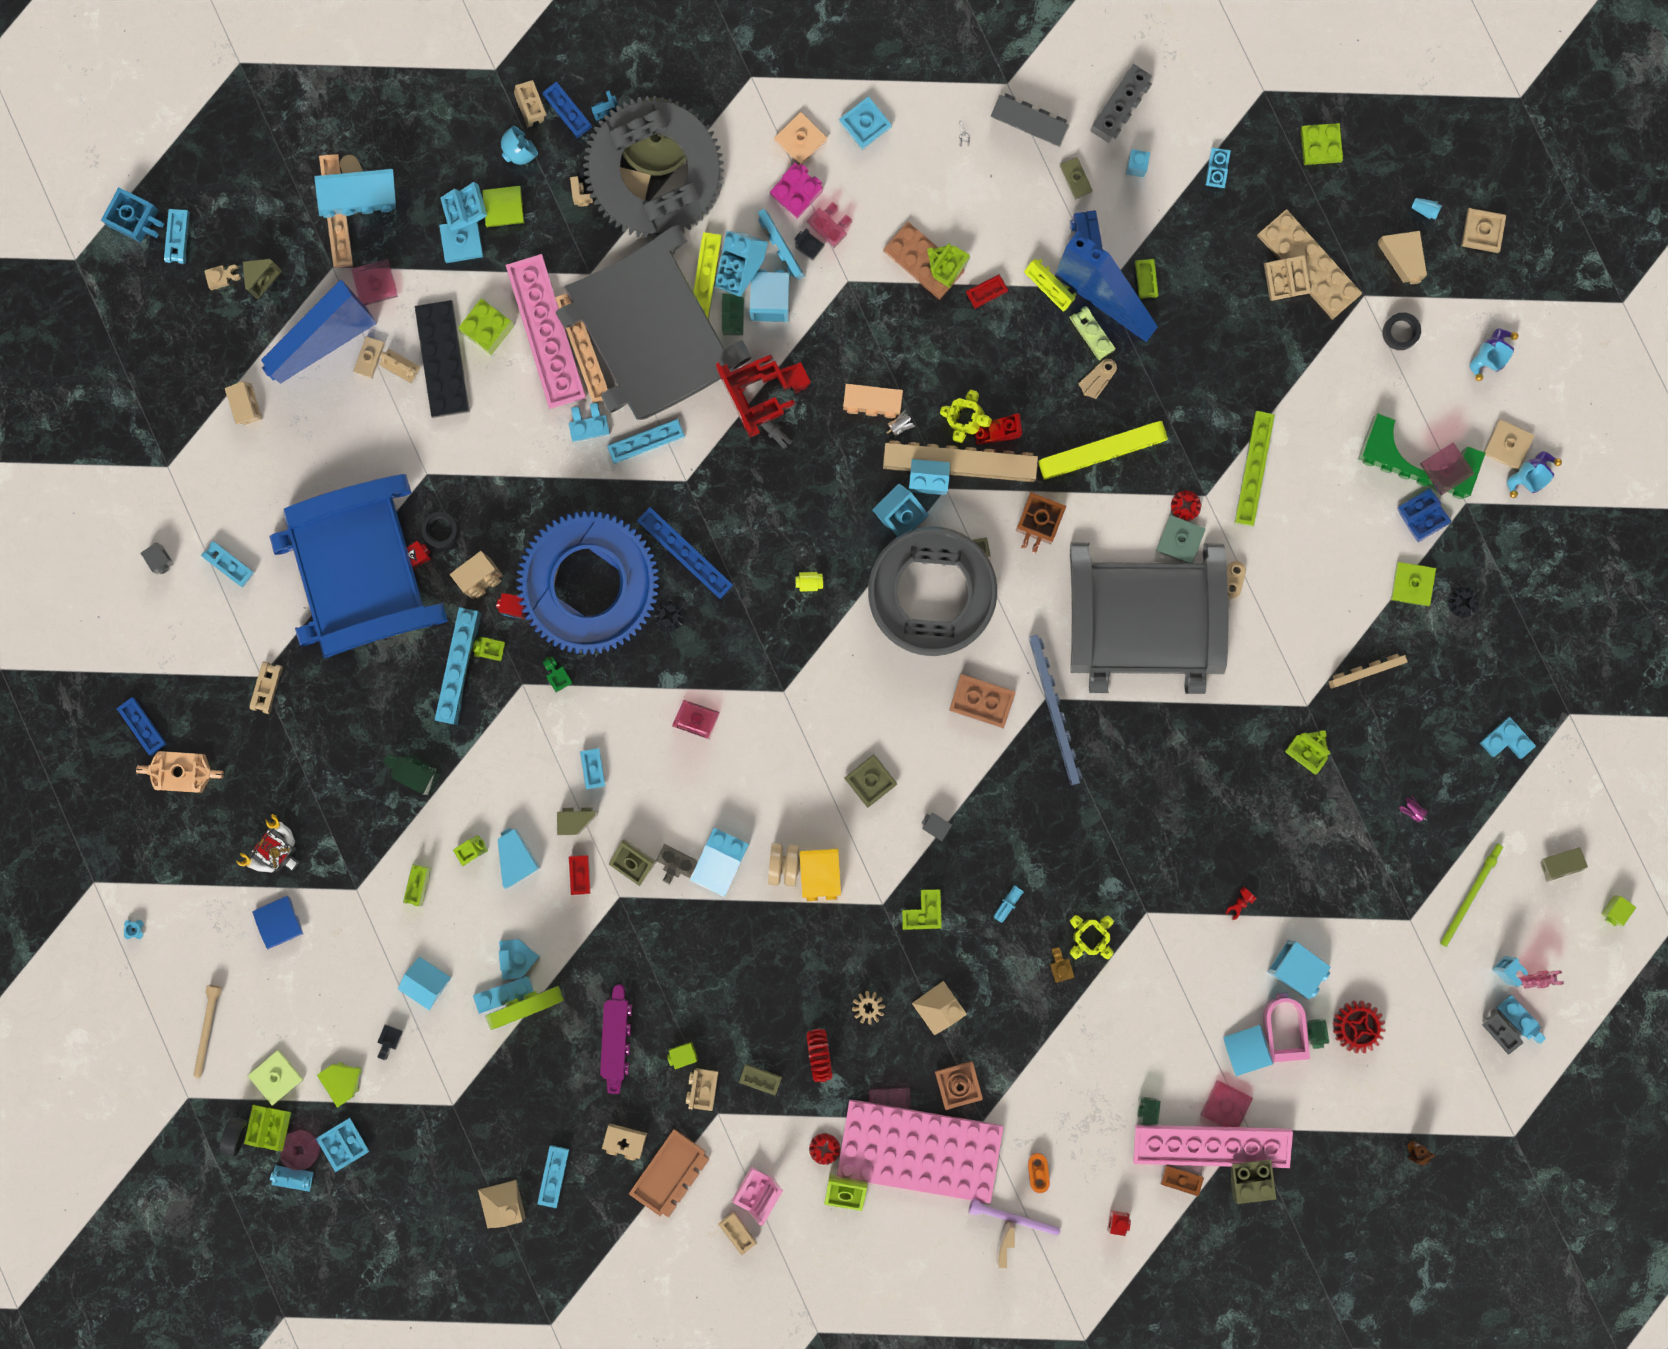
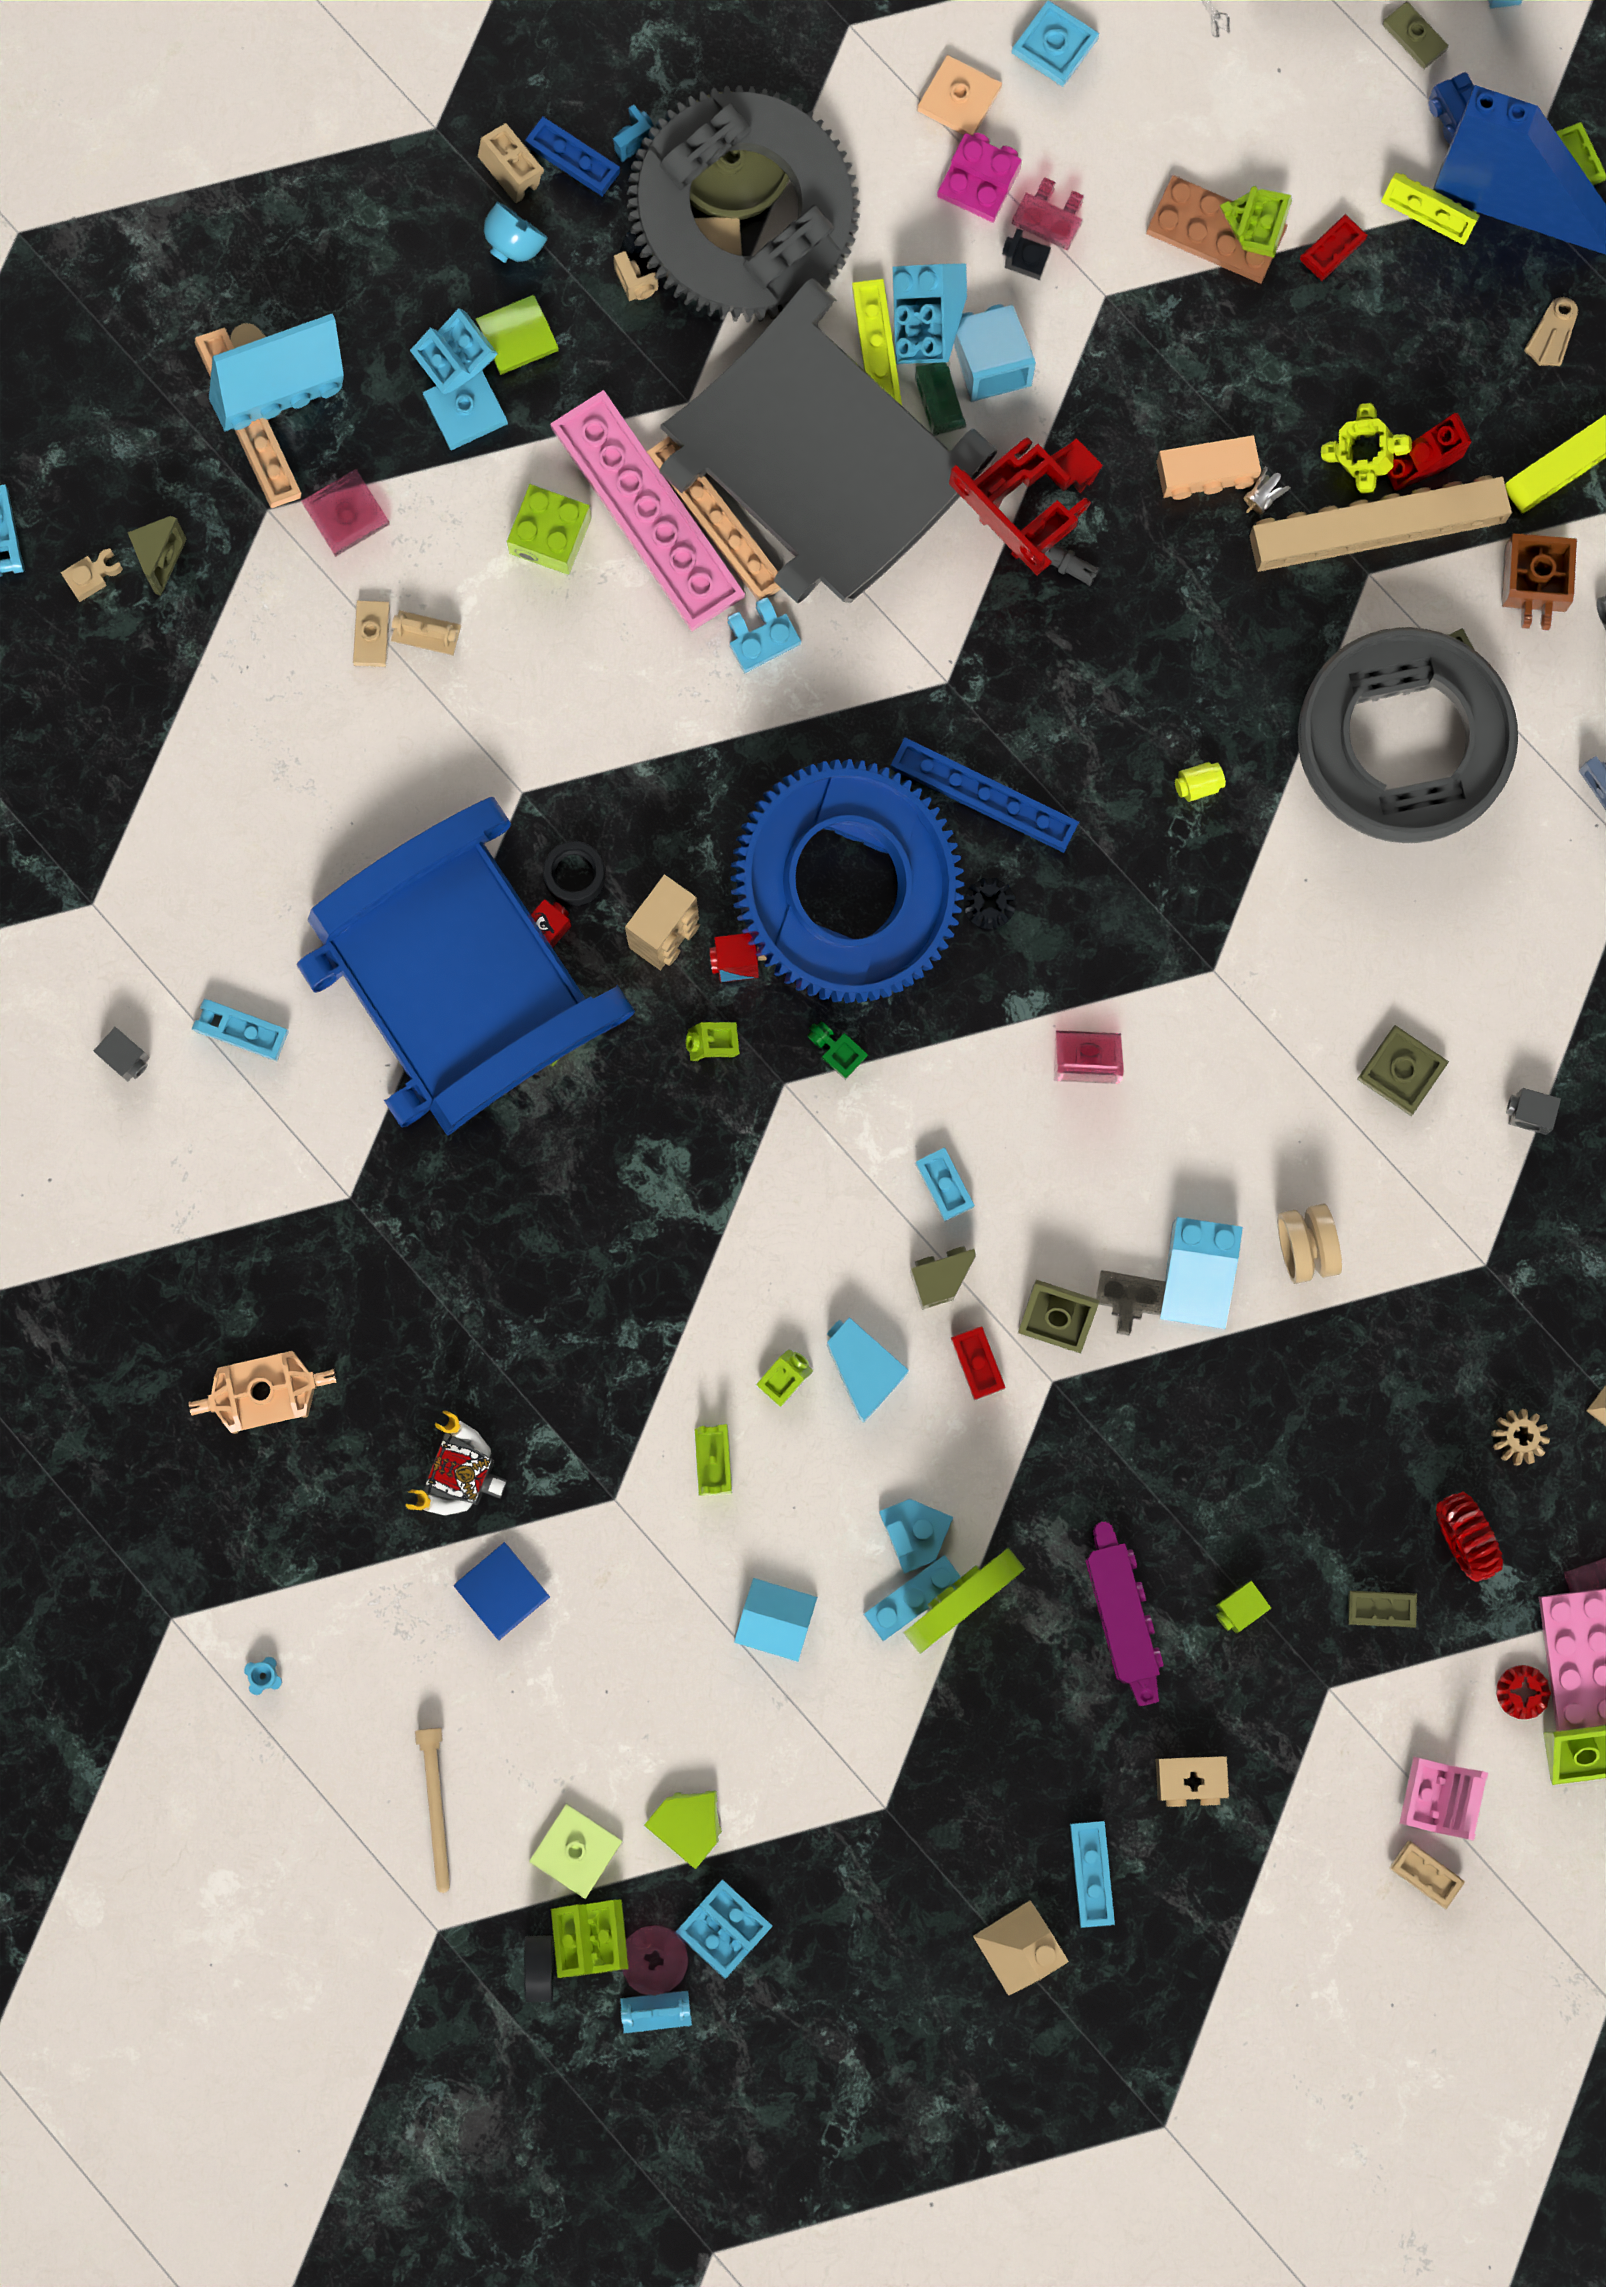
camera: 20 degrees left, 5 degrees down
(141, 726) = (177, 1335): blue plate -> none
(243, 403) = (188, 764): tan hinge -> none
(266, 687) = (364, 1211): tan plate -> none
(322, 330) = (294, 602): blue slope -> none
(389, 1039) = (747, 1727): black plate -> none
(412, 774) = (653, 1276): clear green hinge -> none
(442, 359) = (491, 602): black plate -> none
(454, 677) = (672, 1083): medium azure arch -> none
(645, 441) = (863, 637): medium azure tile -> none
(667, 1173) = (1279, 1811): nougat hinge -> none
(703, 1089) = (1293, 1653): tan bracket -> none
(776, 238) = (992, 277): medium azure plate -> none
(820, 874) = (1374, 1241): yellow slope -> none
(900, 511) = (1310, 627): medium azure slope -> none
(928, 916) = (1569, 1255): lime plate -> none
(929, 477) = (1342, 559): medium azure slope -> none
(982, 701) = (1540, 890): nougat plate -> none
(1092, 333) = (1521, 265): yellowish green plate -> none

